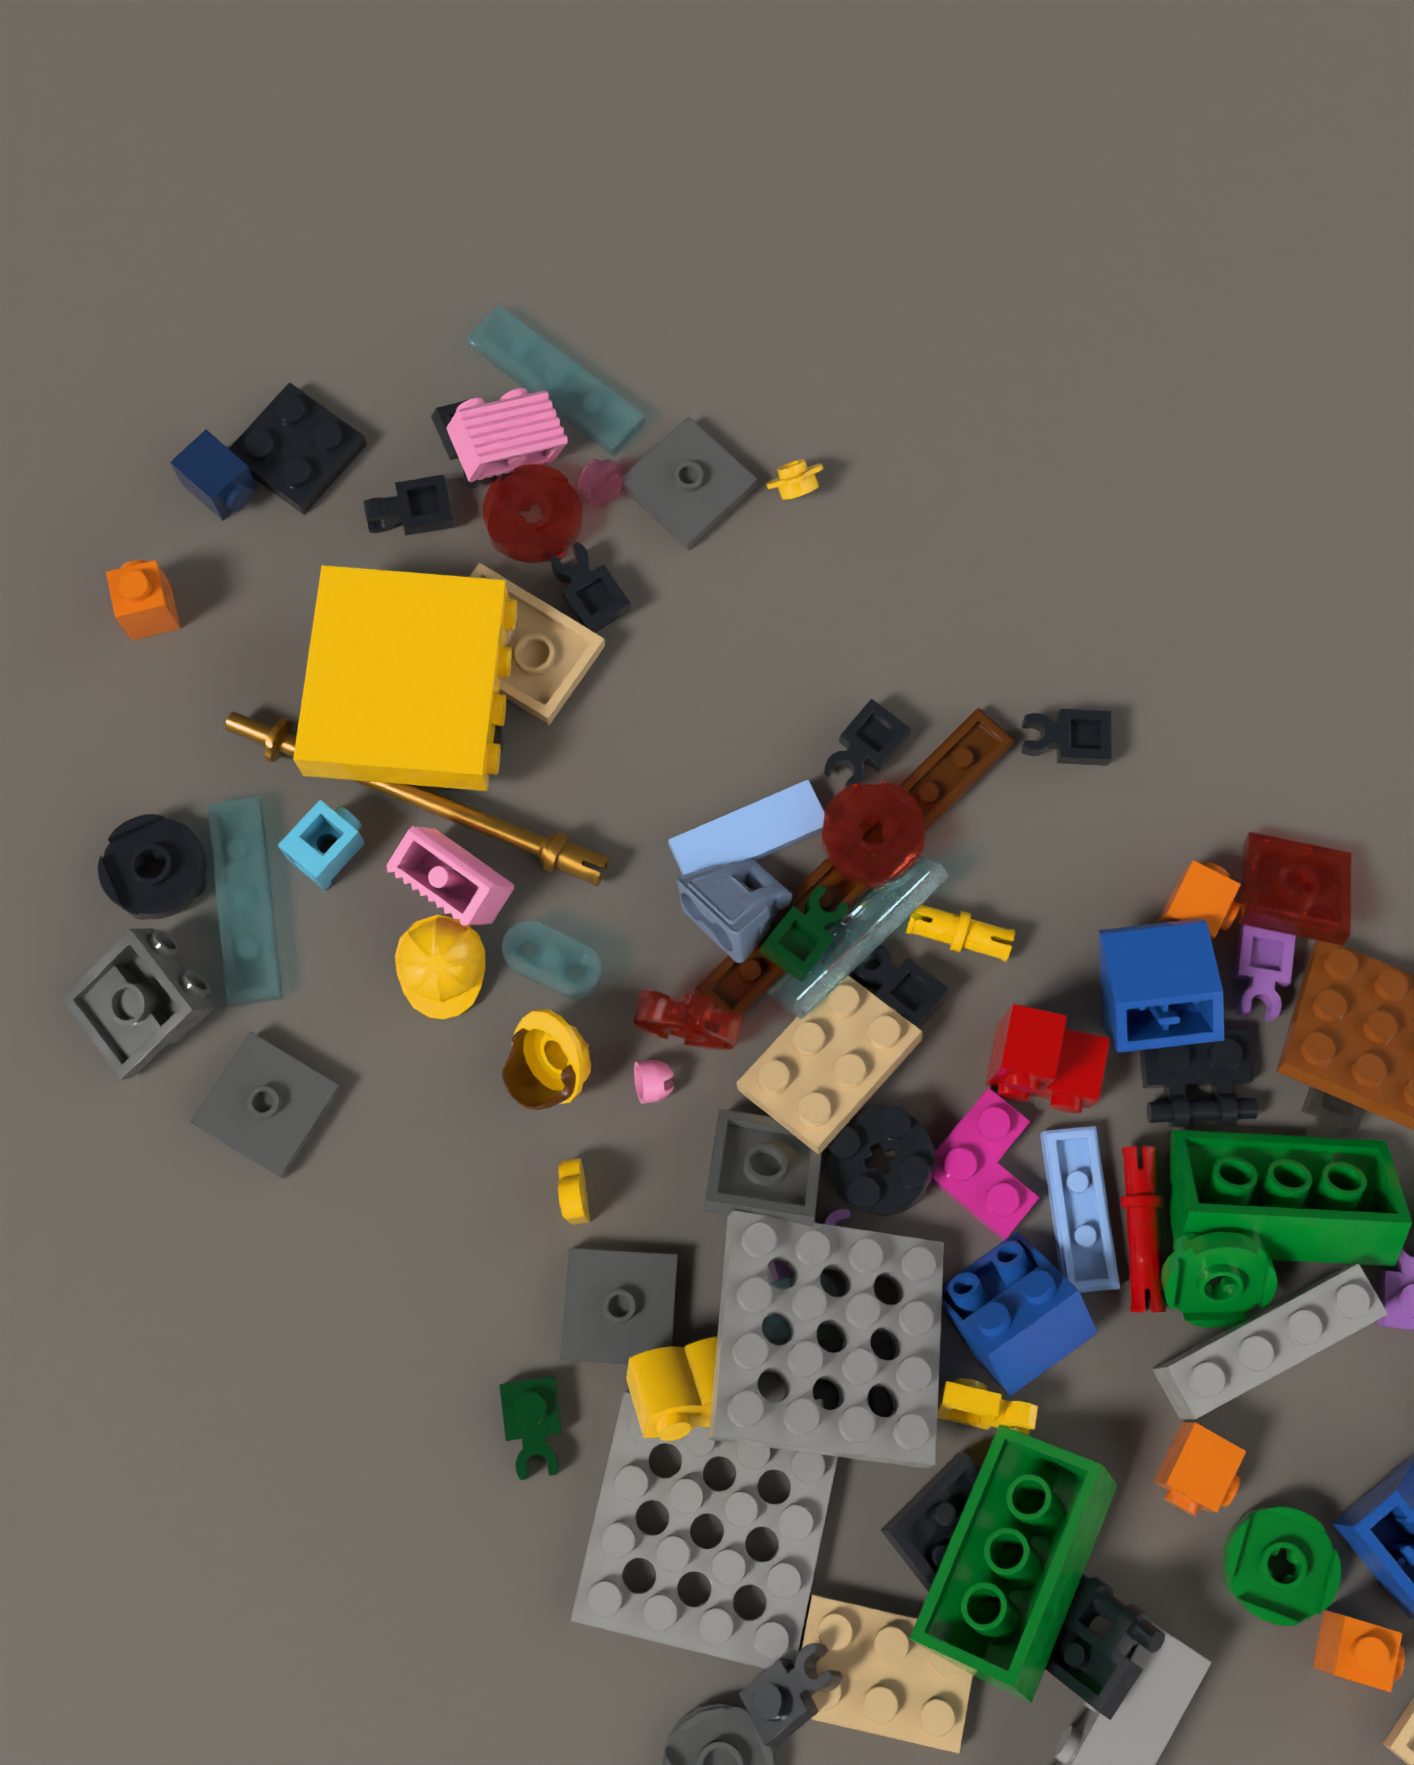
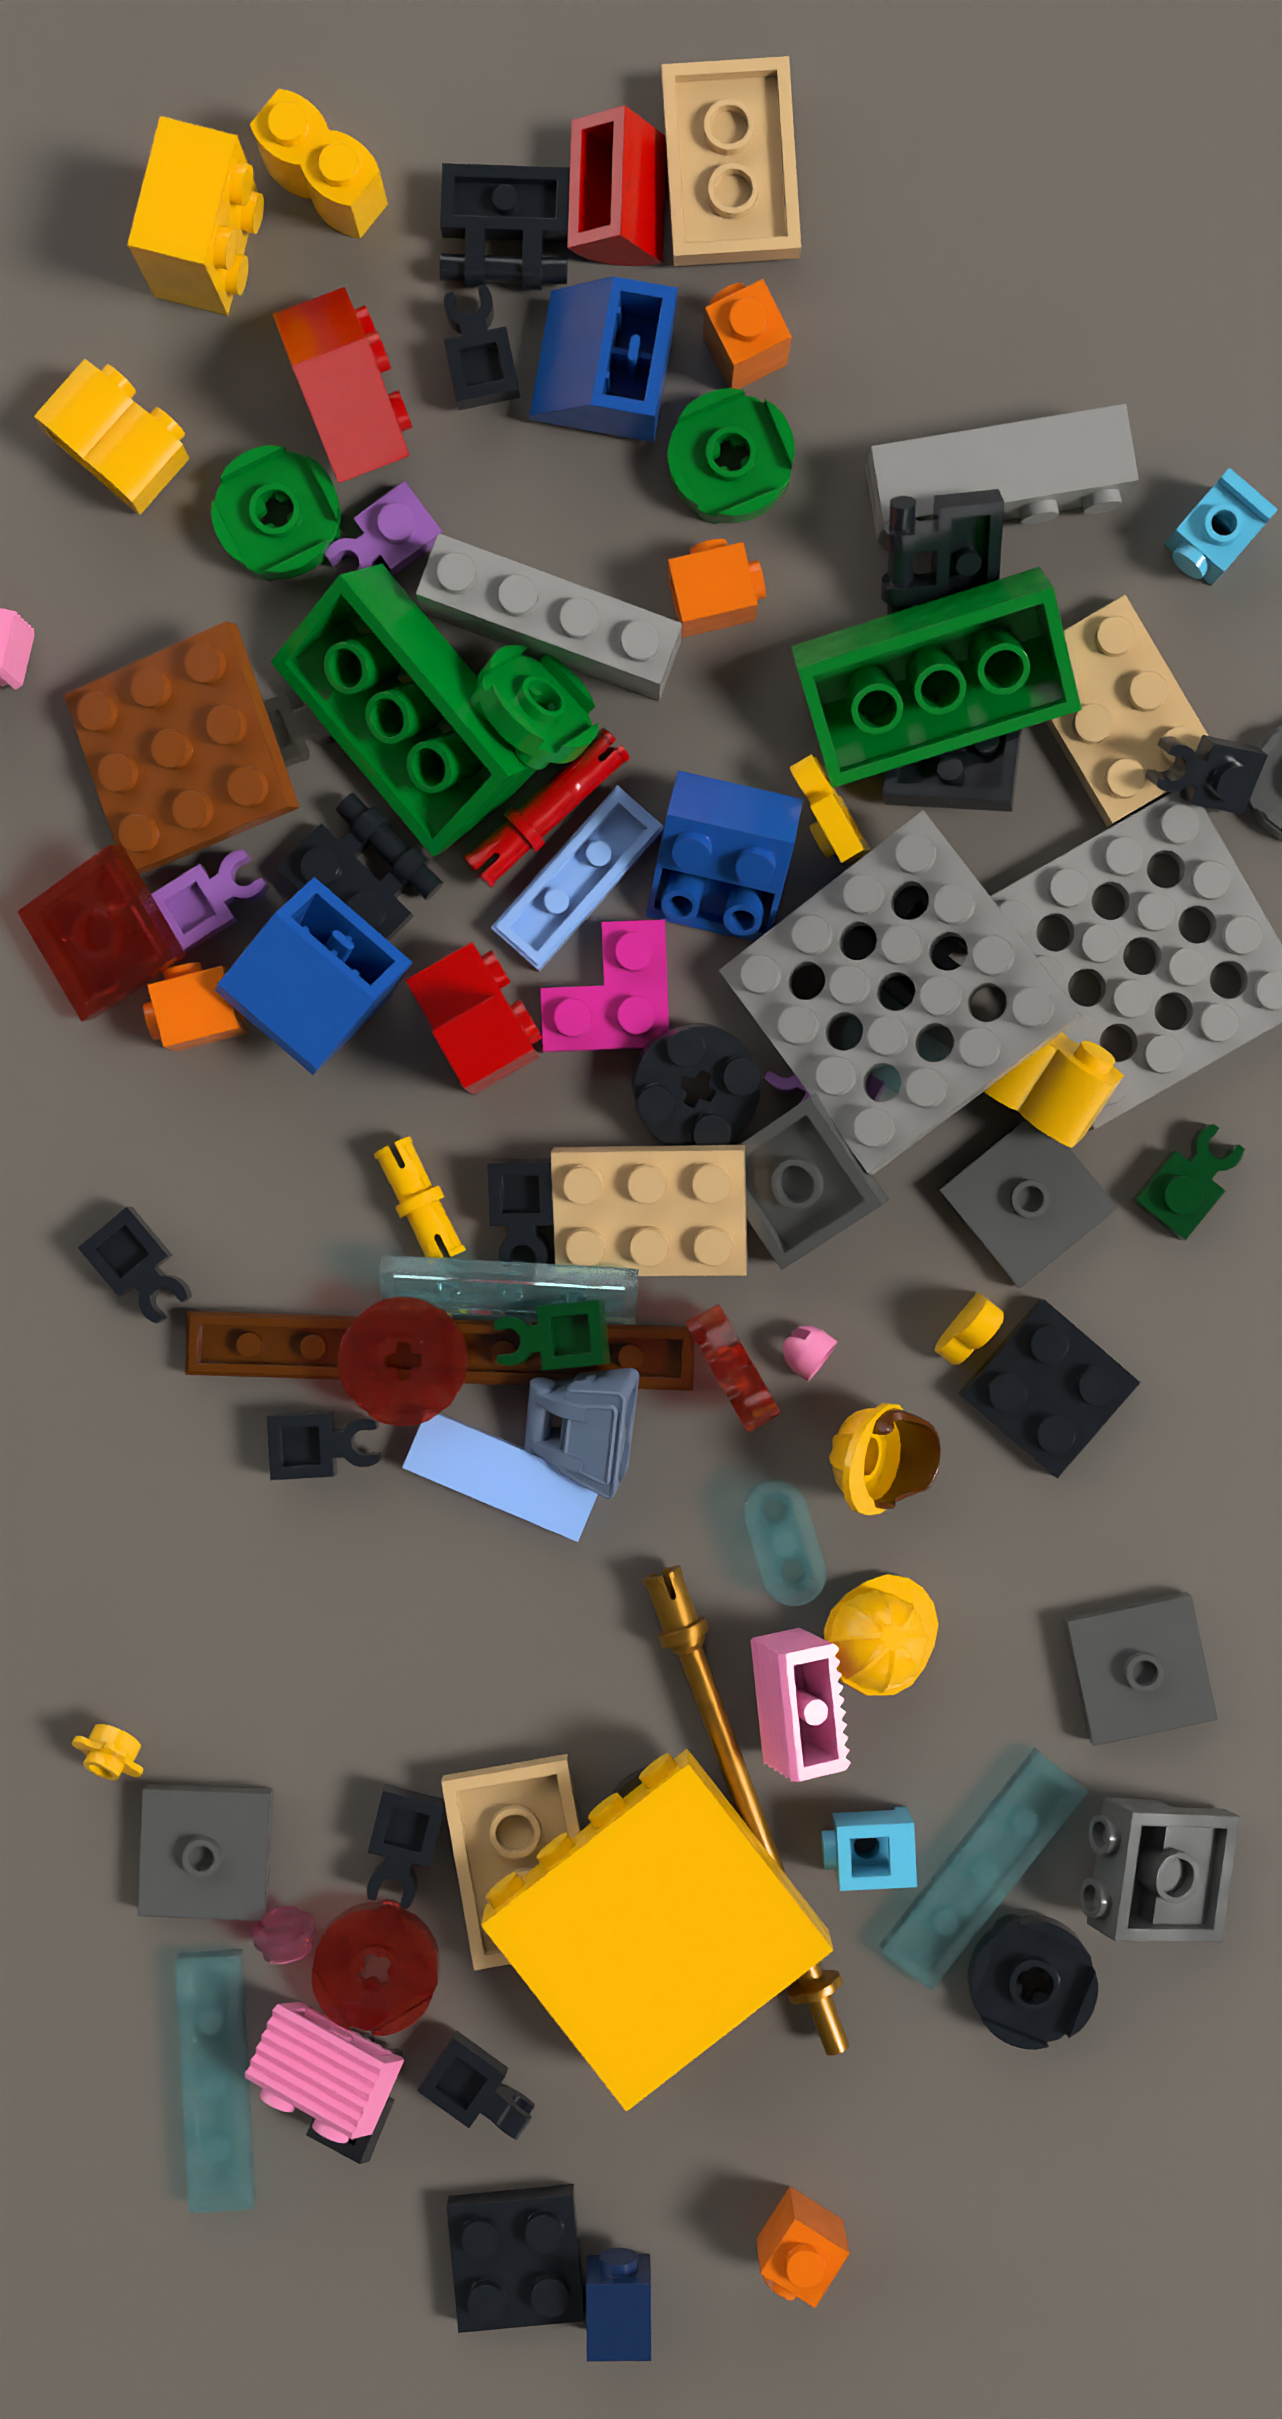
camera: 130 degrees left, 15 degrees up
(489, 1210) = (1049, 1387): none -> black plate

